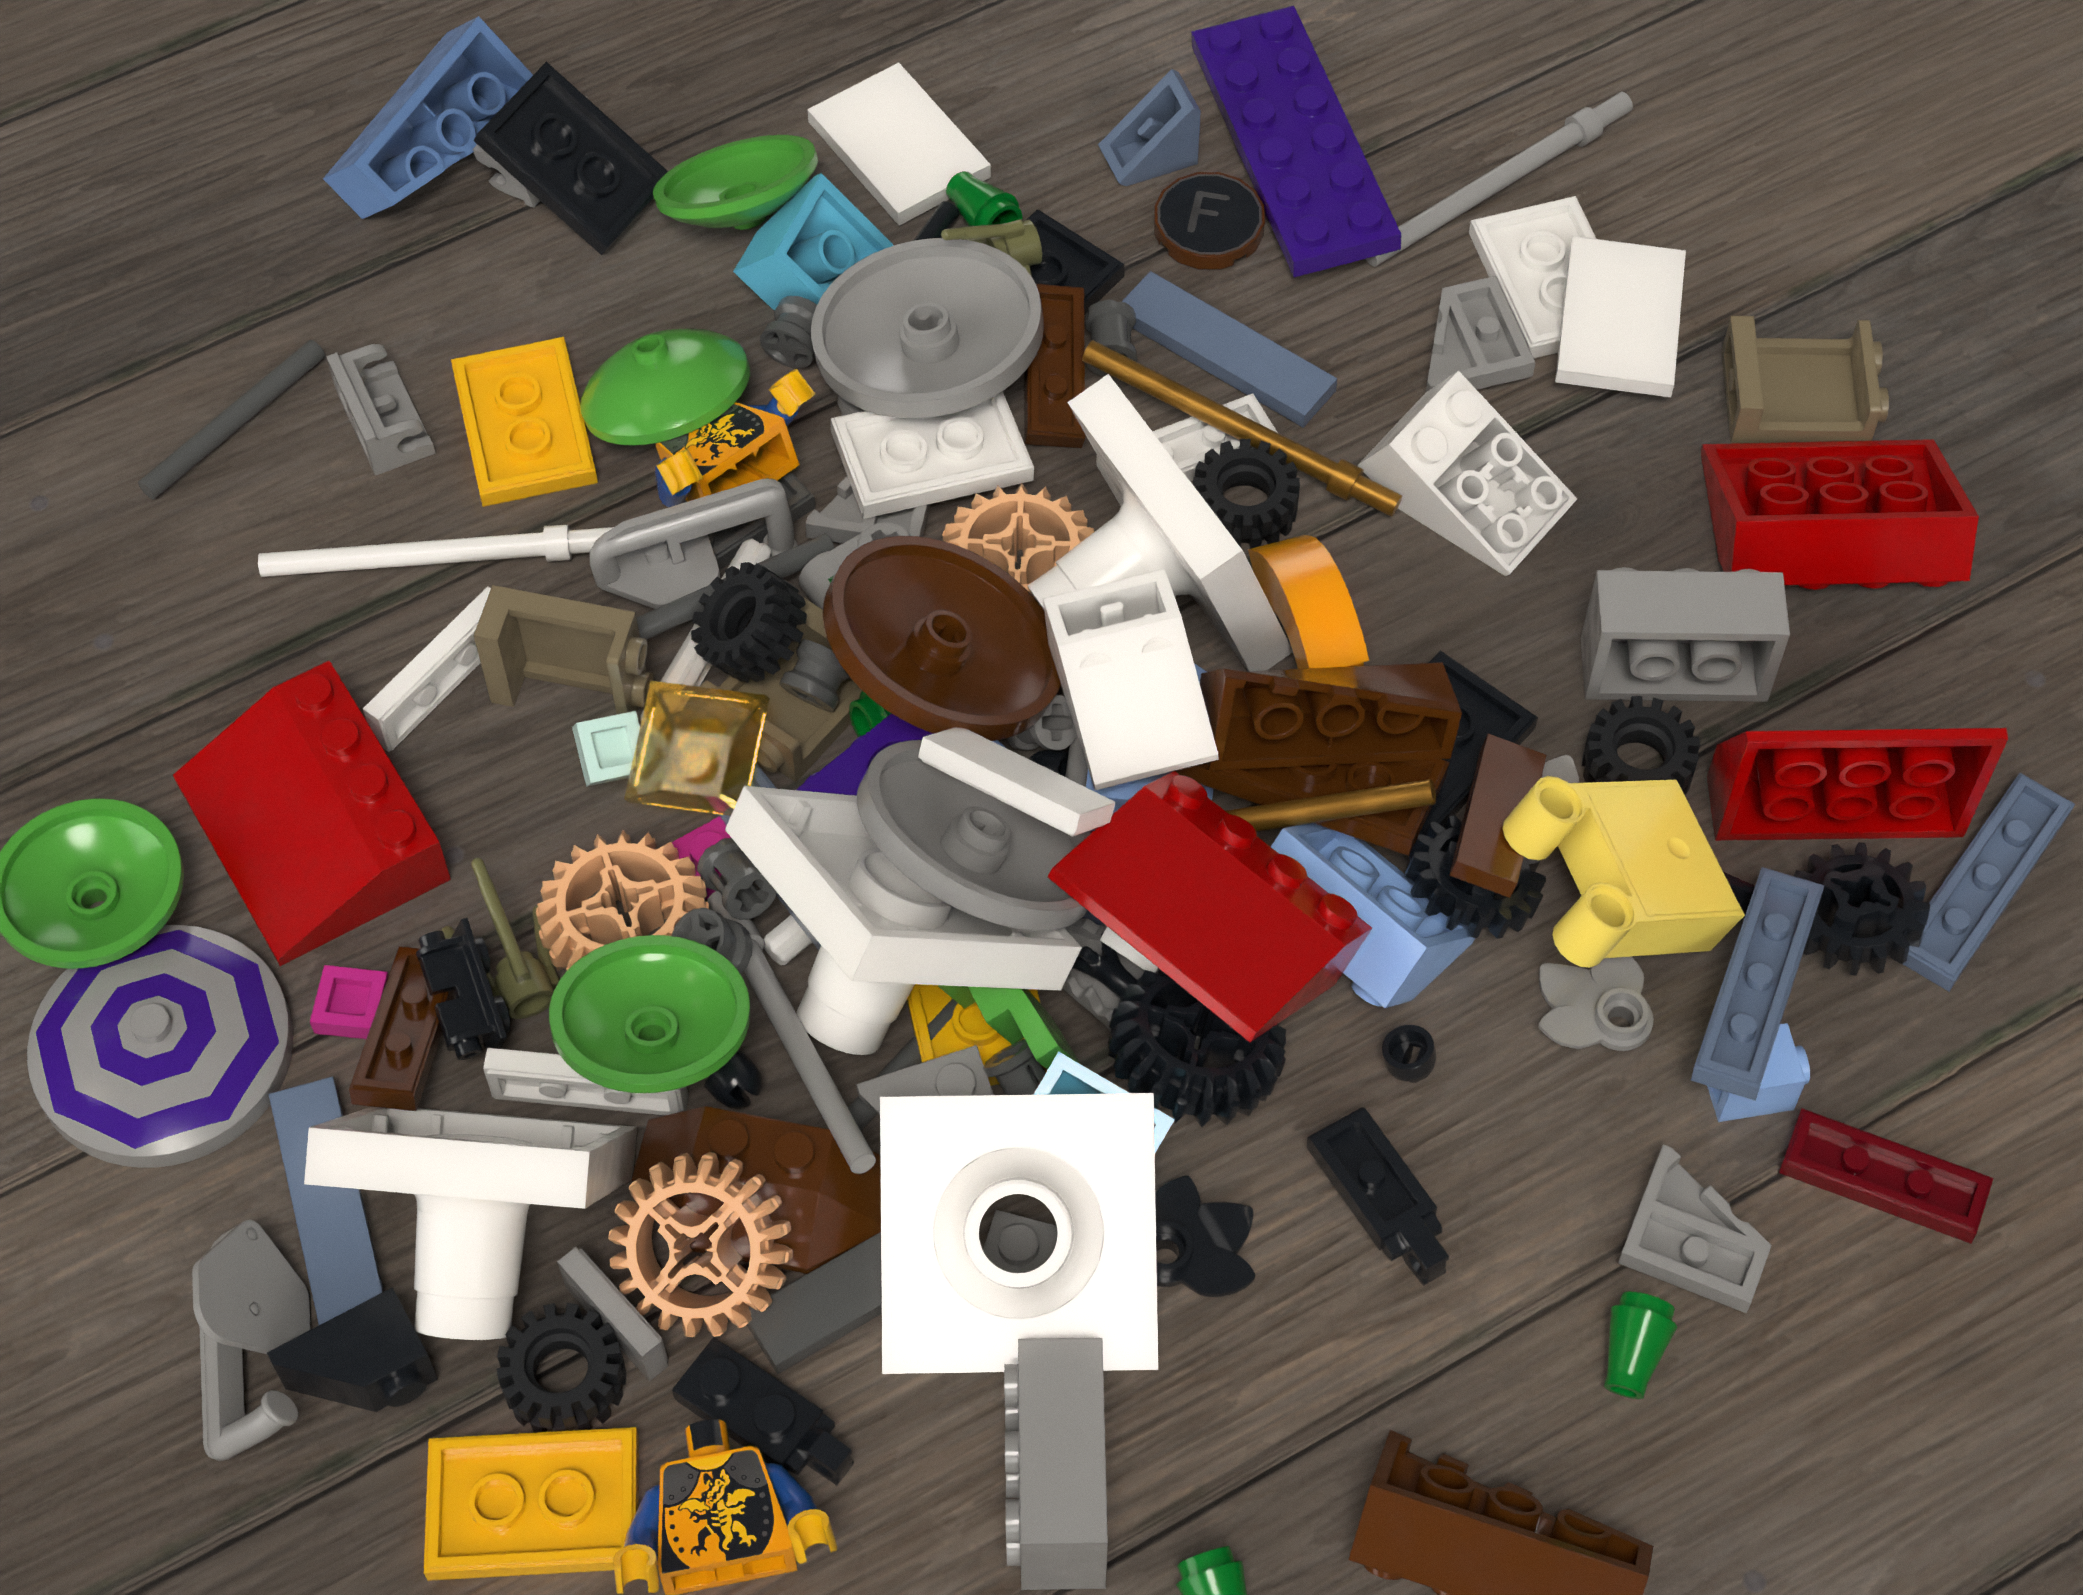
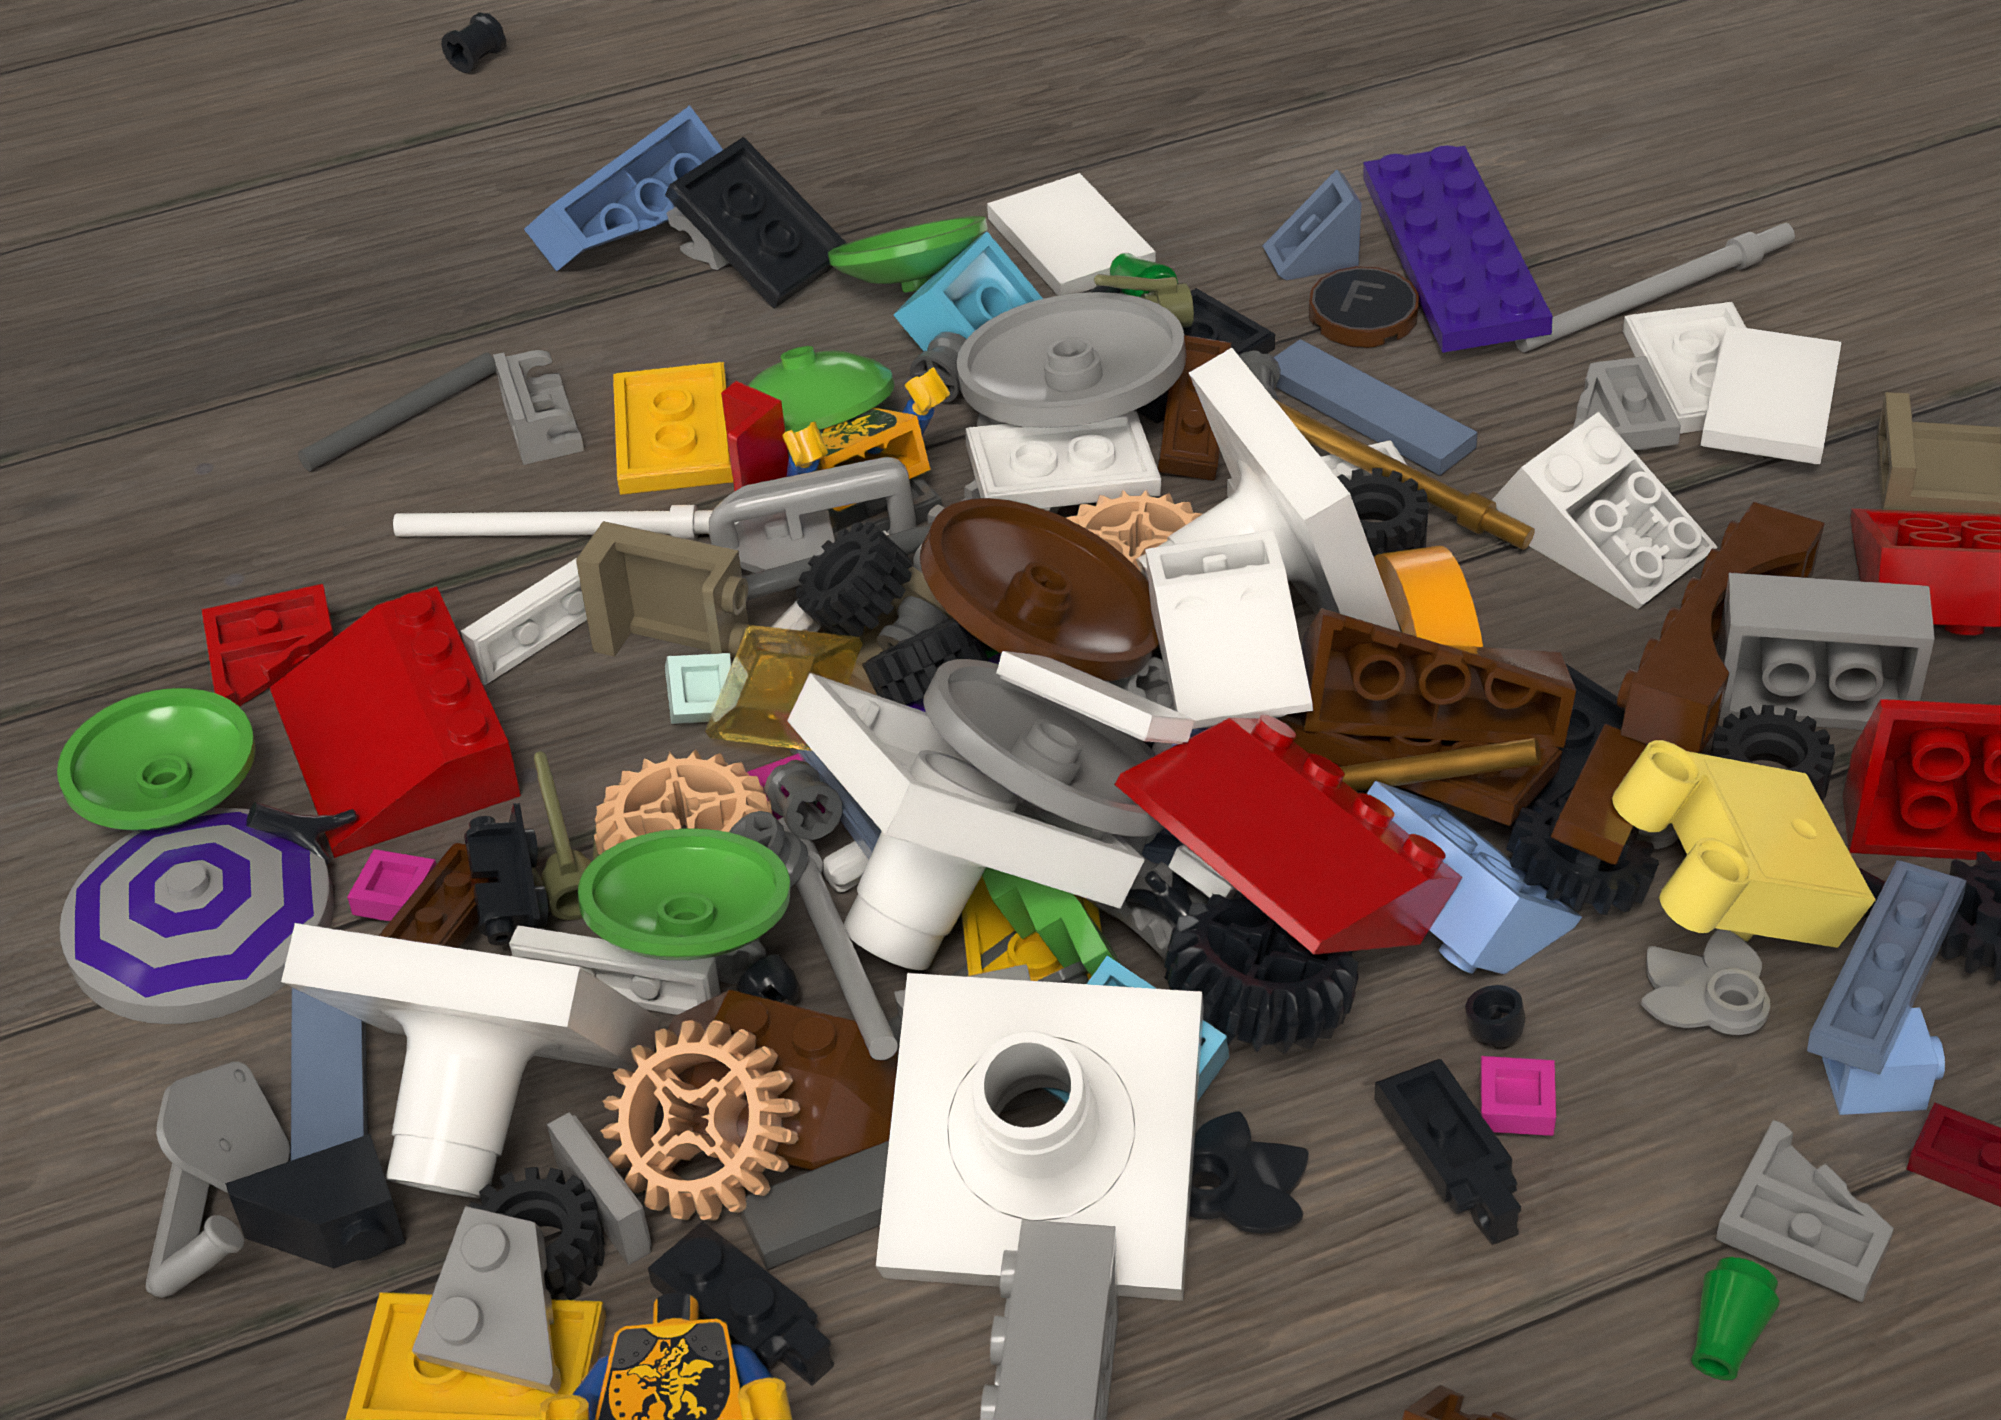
camera: 10 degrees right, 15 degrees down
(157, 723) = (264, 639): none -> red wing
(243, 947) = (297, 828): none -> black bar
(541, 1448) = (493, 1304): none -> light grey wing
(621, 459) = (754, 435): none -> red panel
(834, 728) = (908, 668): none -> black tyre
(1435, 1136) = (1518, 1095): none -> dark pink plate
(1560, 686) = (1680, 675): none -> reddish brown arch

